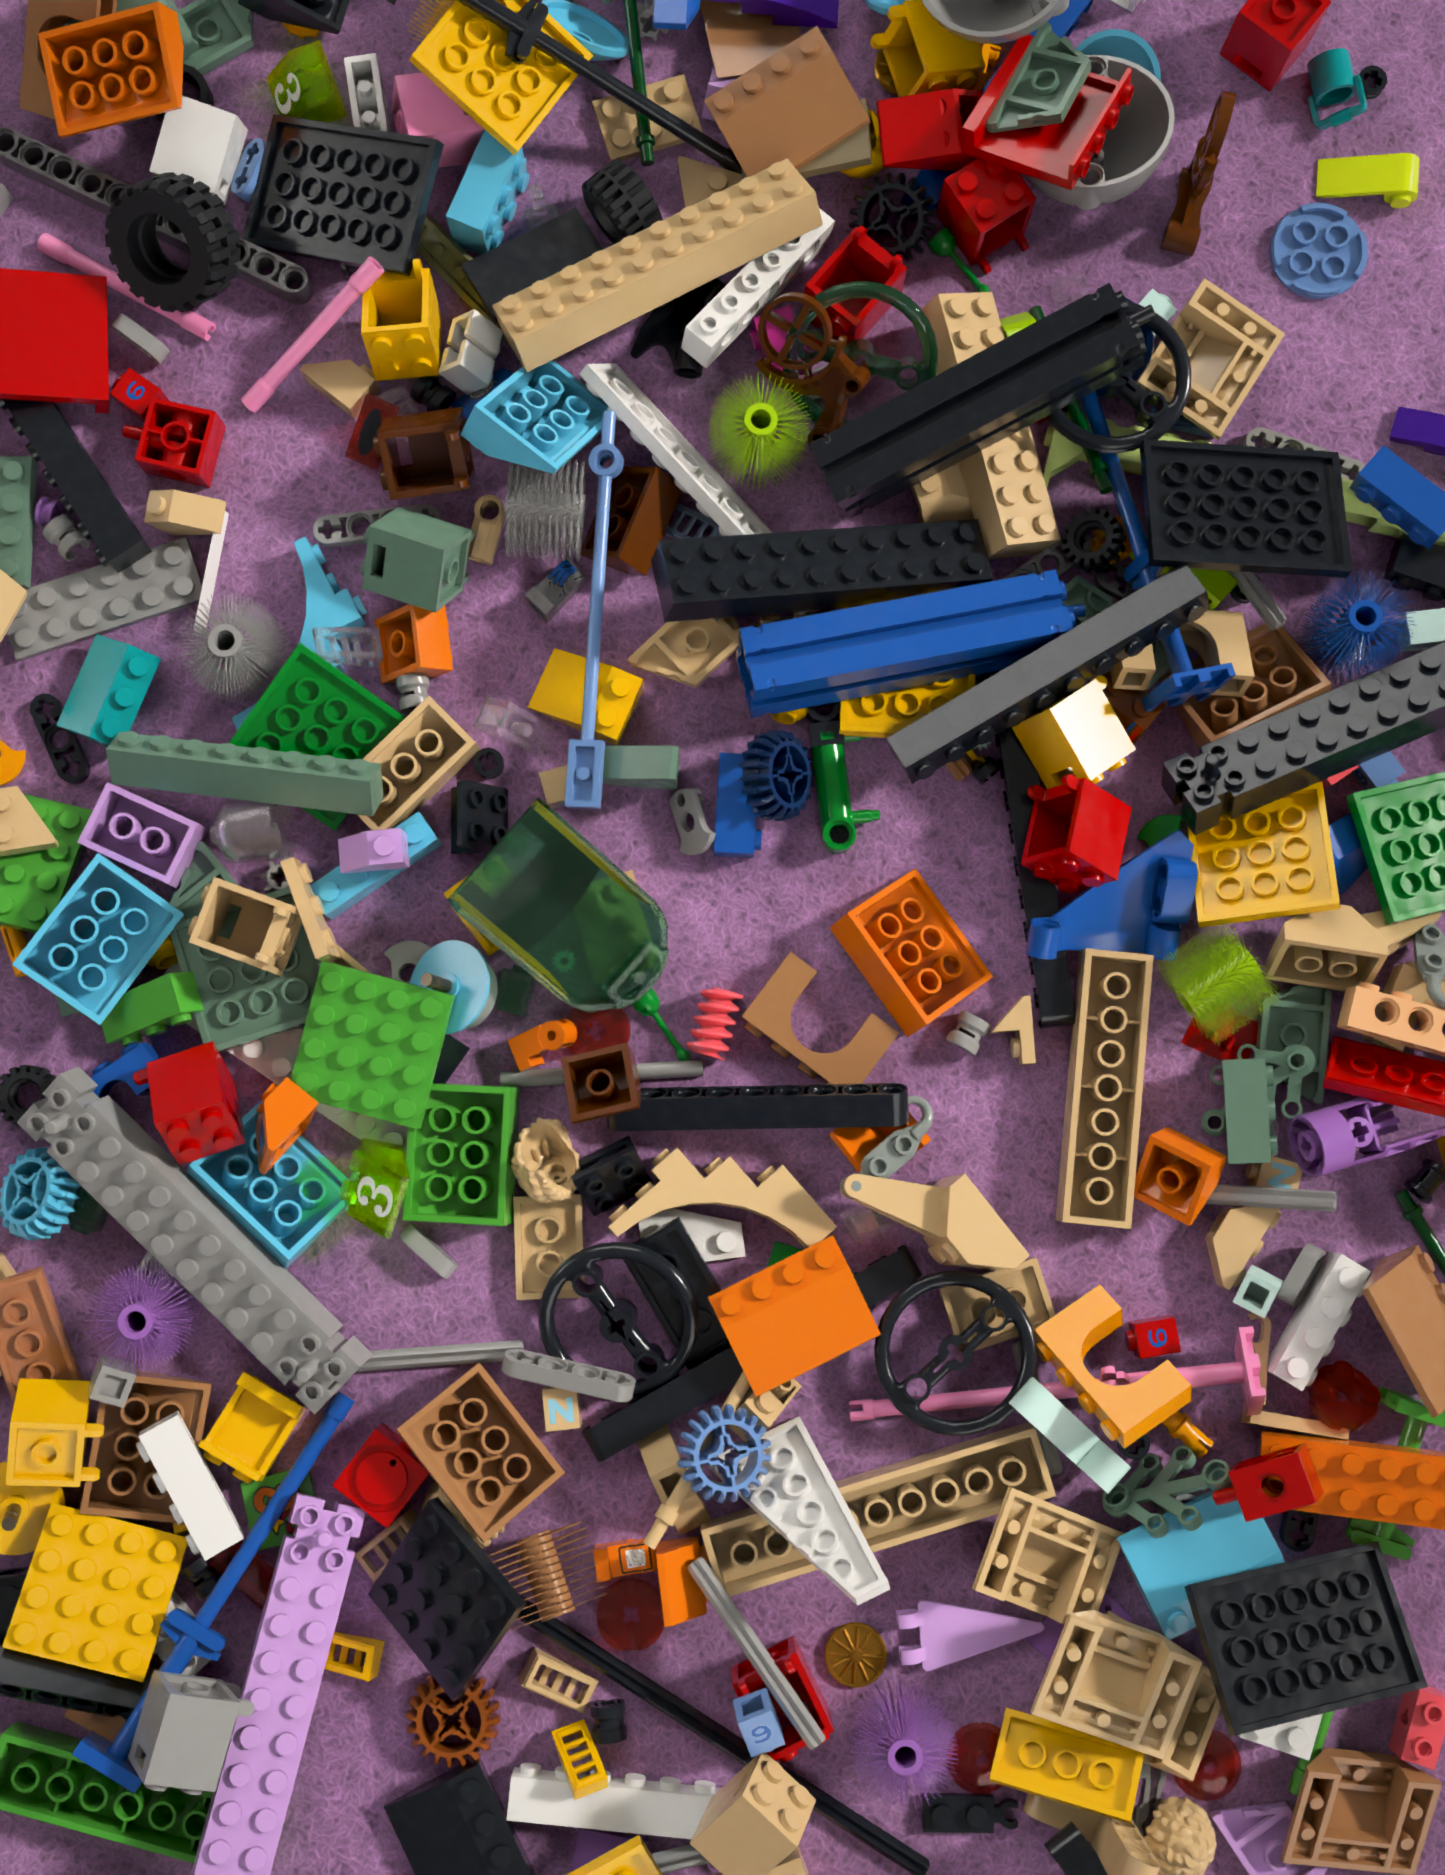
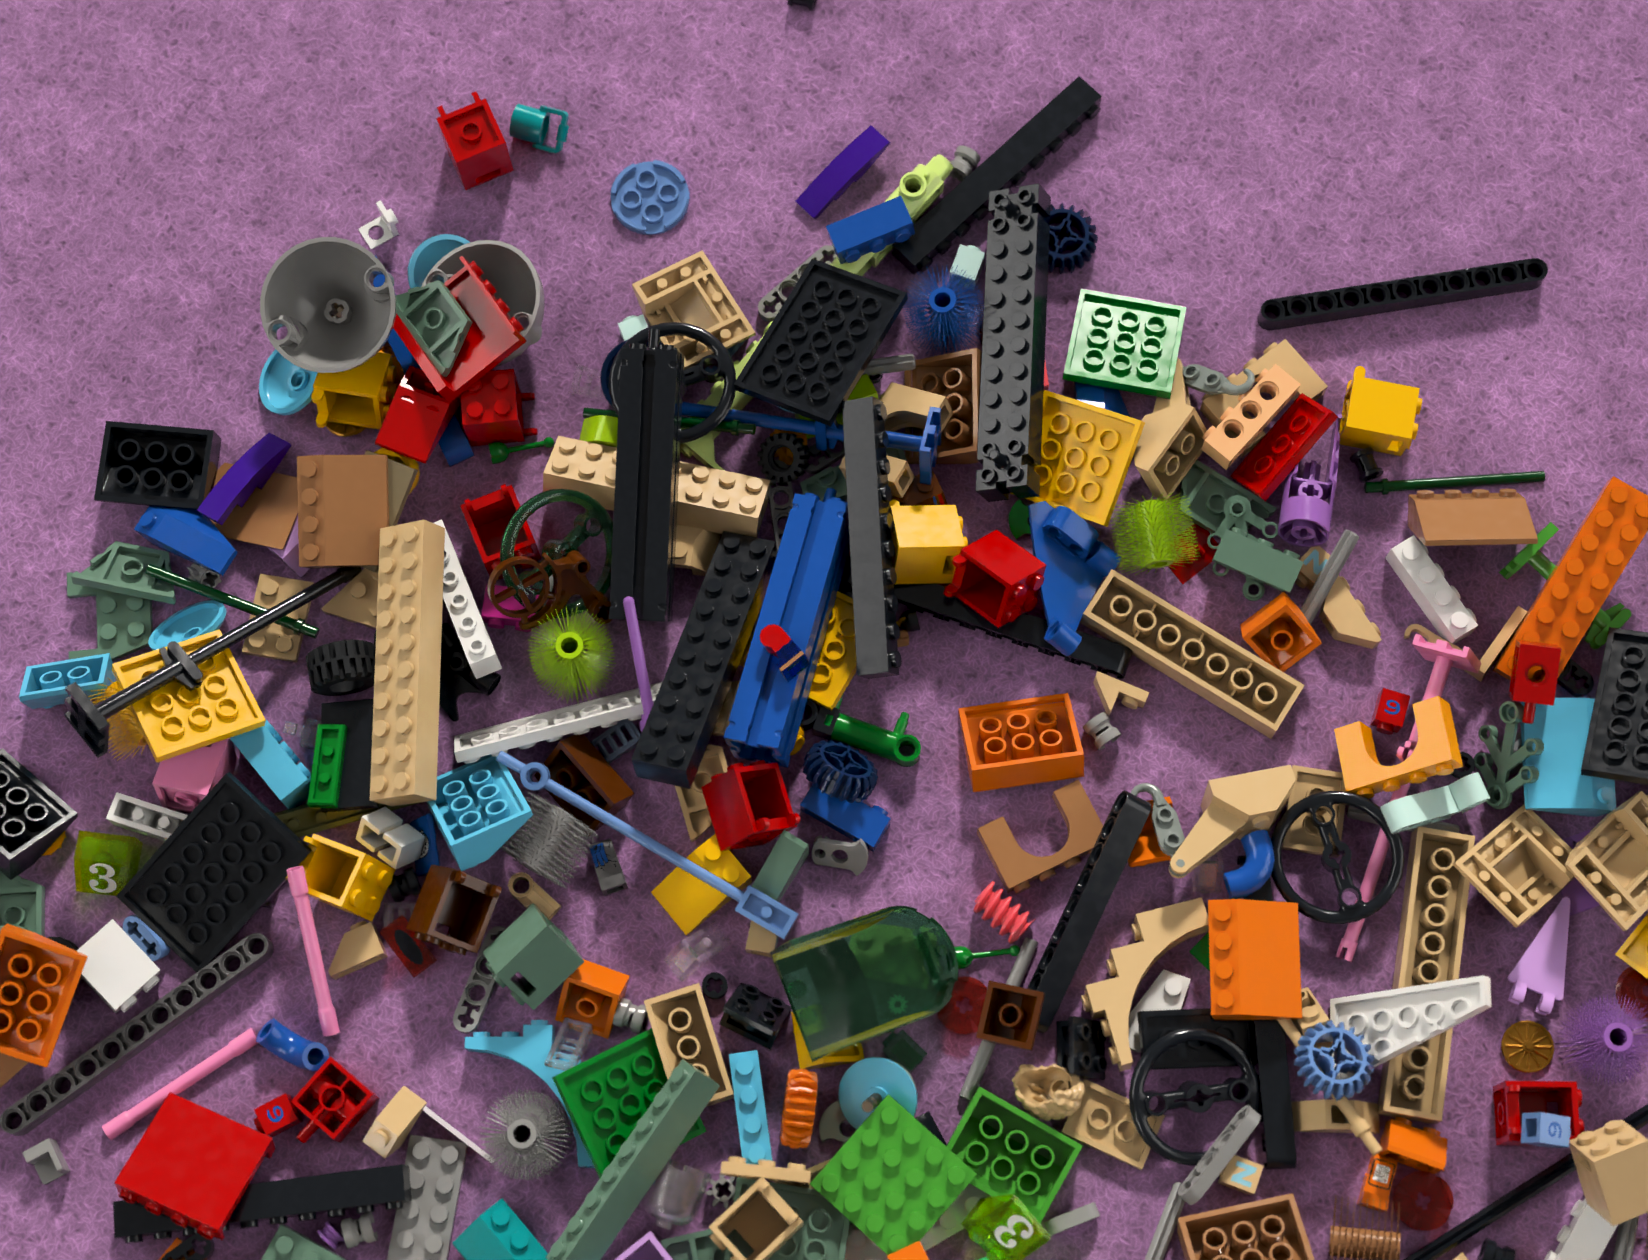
camera: 60 degrees left, 10 degrees down
(140, 338) = (231, 1092): light grey beam -> none
(141, 258) = (194, 1051): black tyre -> none
(212, 371) = (292, 1047): none -> blue cylinder
(374, 851) = (745, 1101): lavender slope -> none
(397, 911) = (798, 1108): none -> orange gear
(510, 246) = (327, 766): none -> green tile
(531, 1044) = (953, 1039): orange leg -> none
(678, 707) = (749, 805): none -> red container
(756, 1653) = (1493, 1109): light grey axle -> none
(790, 491) = (639, 658): none -> medium lavender piece
(870, 637) = (783, 647): none -> leg
(898, 1271) = (1257, 866): none -> blue cylinder
(906, 213) = (487, 480): black gear -> none
(1180, 1427) = (1467, 724): light orange pin -> none
(1196, 181) = (555, 250): reddish brown piece -> none
(1258, 1291) = (1391, 620): light aqua brick -> none
(1301, 1275) = (1393, 585): light grey beam -> none
(1355, 1385) = (1494, 587): clear red plate -> none
(1378, 771) = (1056, 348): medium blue brick -> none
(1380, 81) = (547, 92): black bush -> none
(1384, 174) = (615, 136): neon yellow door -> none

